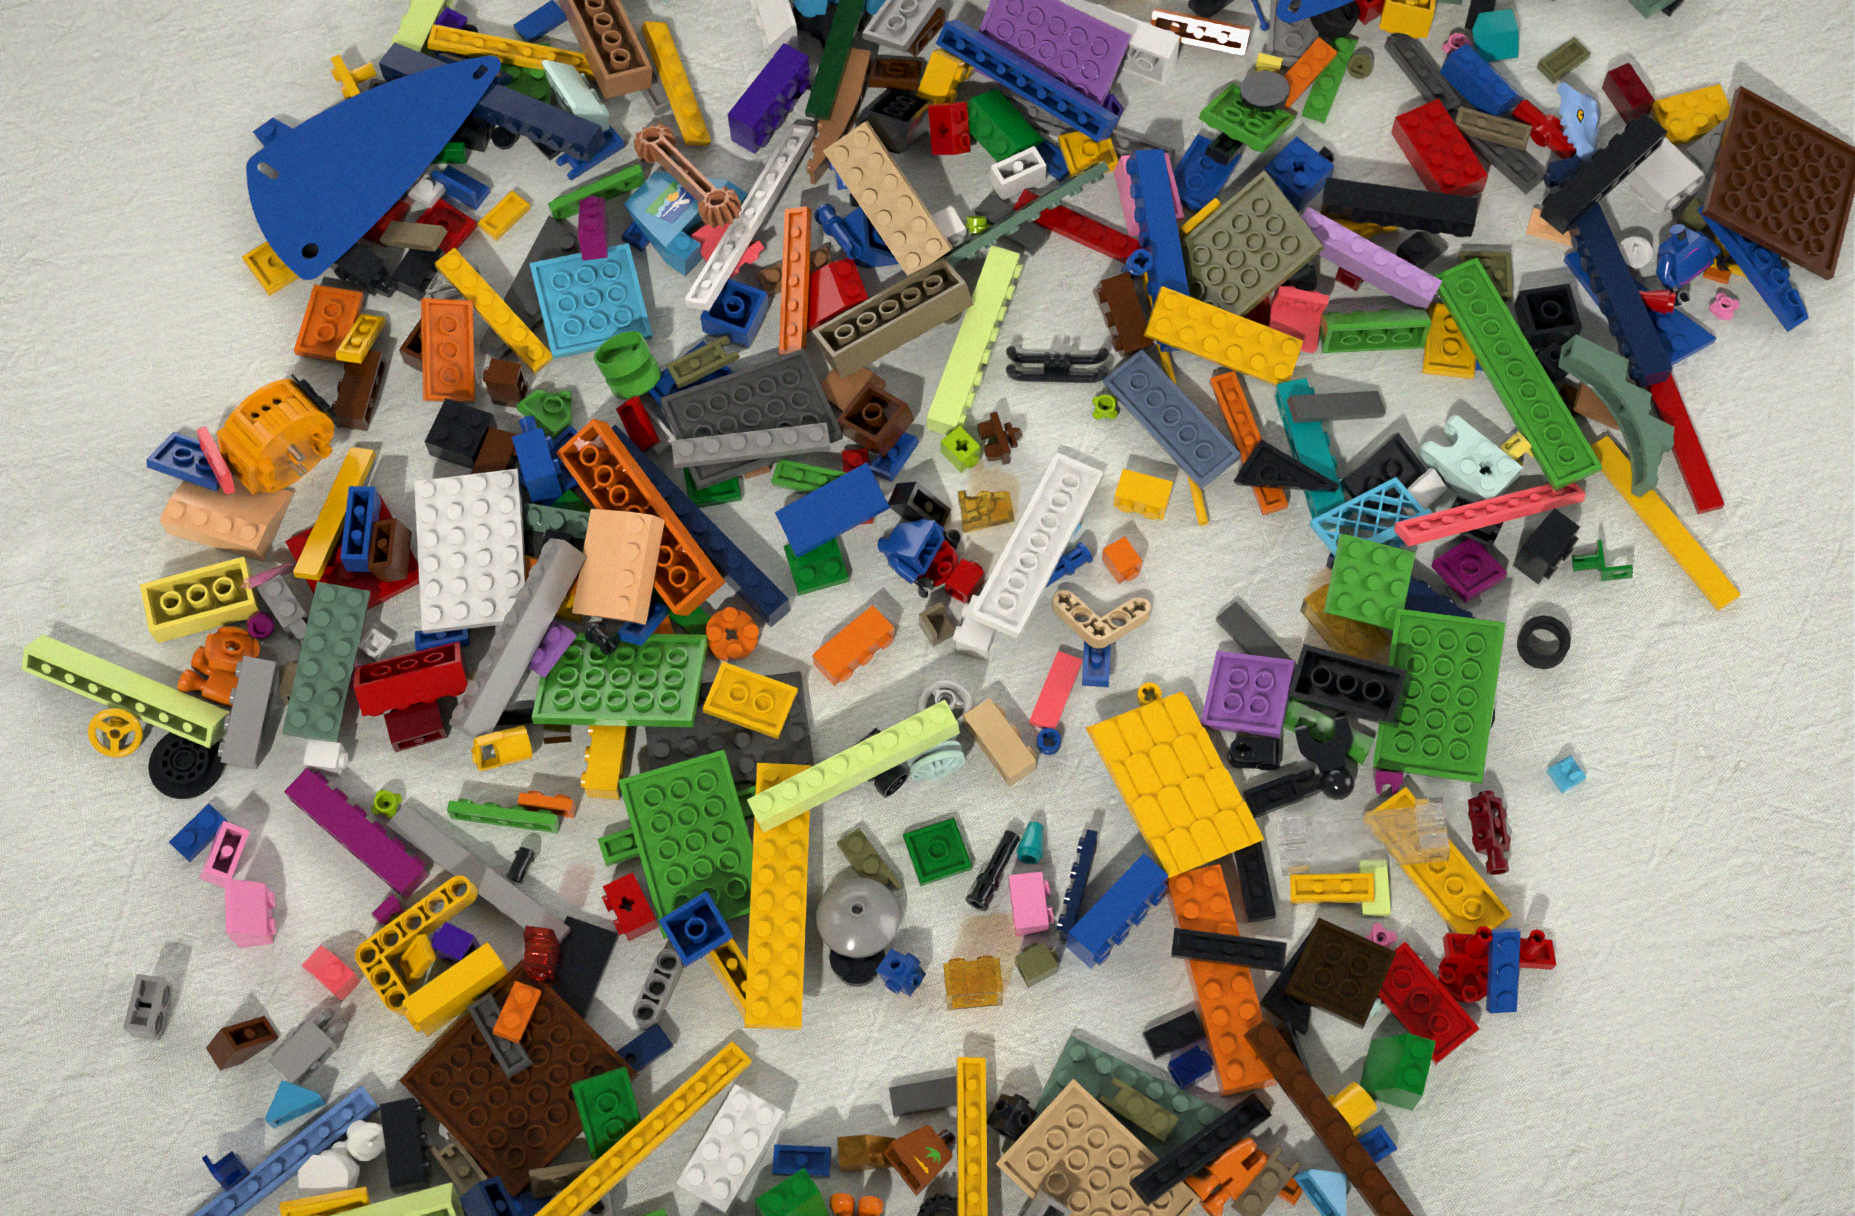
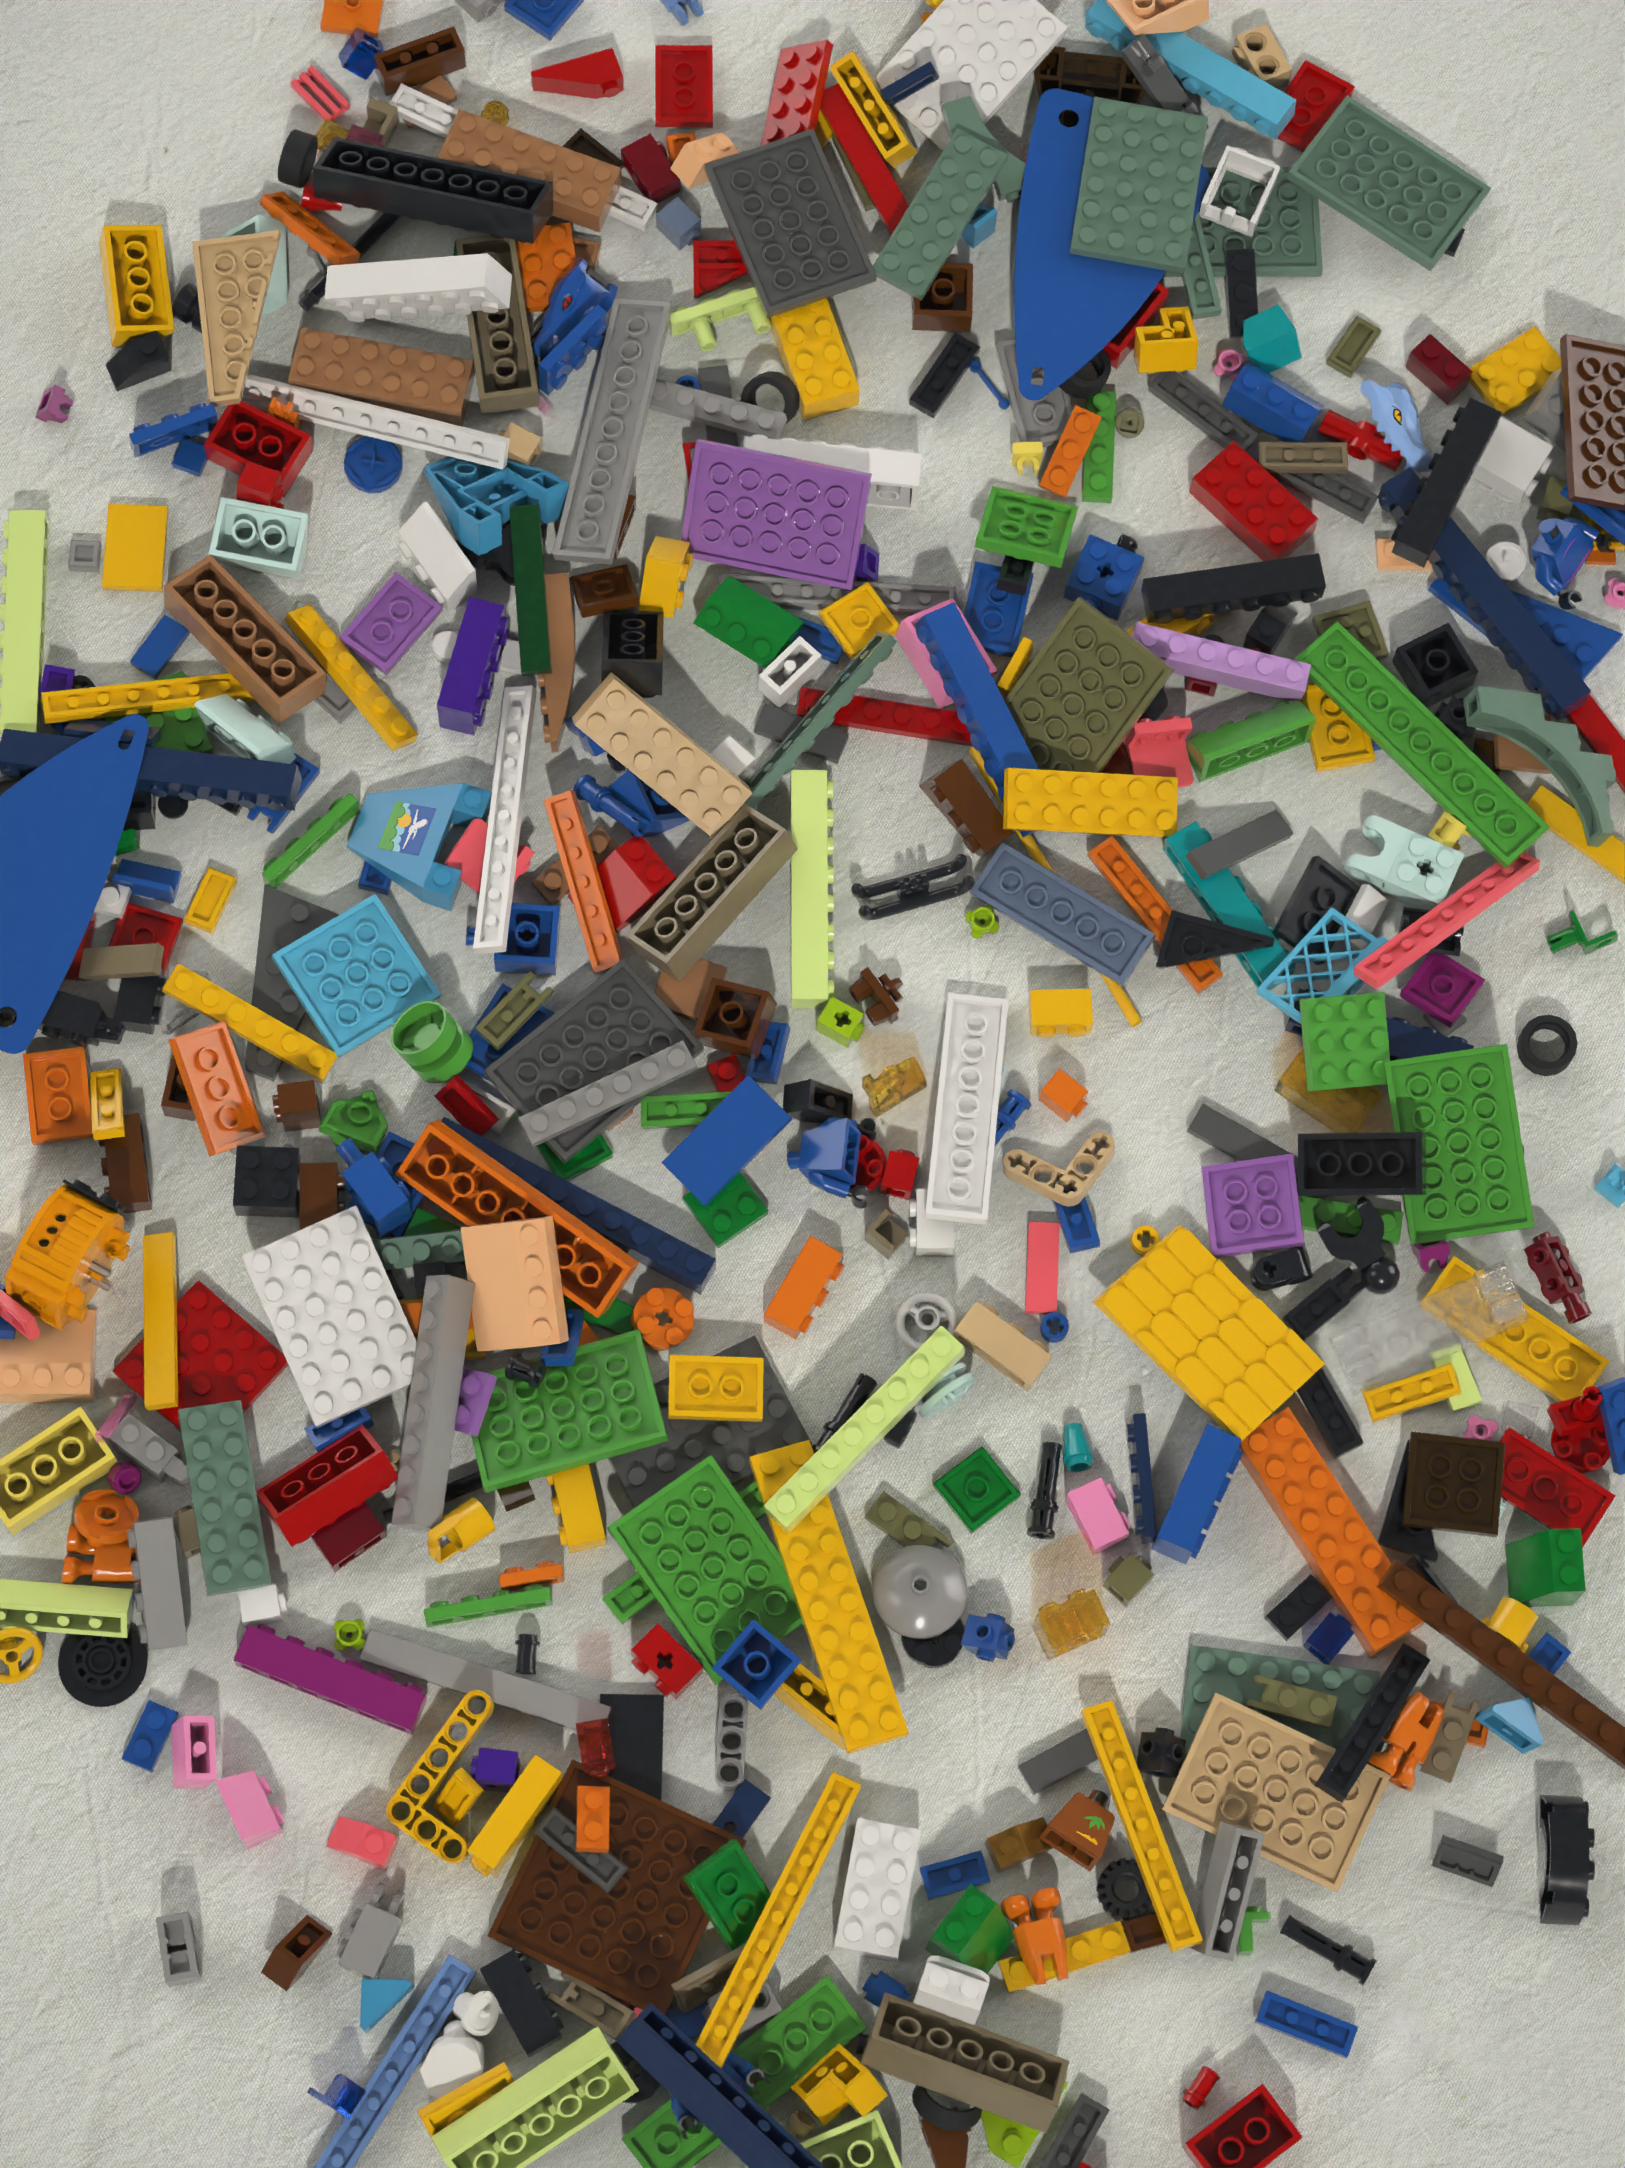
camera: 25 degrees left, 5 degrees up
(361, 512) = (202, 1331): blue brick -> none
(375, 644) = (264, 1456): white tile -> none
(386, 909) = (398, 1753): magenta tile -> none
(389, 550) = (245, 1345): reddish brown brick -> none
(593, 228) = (329, 889): magenta brick -> none
(714, 204) = (414, 791): nougat arm -> none
(722, 53) = (391, 623): none -> medium lavender plate
(949, 128) = (694, 642): red brick -> none
(976, 223) = (762, 746): lime plate -> none
(1027, 80) = (764, 558): blue brick -> none
(1138, 263) = (967, 747): blue pin -> none
(1203, 31) = (938, 433): brick -> none
(1229, 949) = (1330, 1499): black tile -> none
(1264, 91) = (1035, 489): tile -> none
(1547, 547) = (1520, 937): black brick -> none
(1659, 300) = (1550, 612): red cone -> none

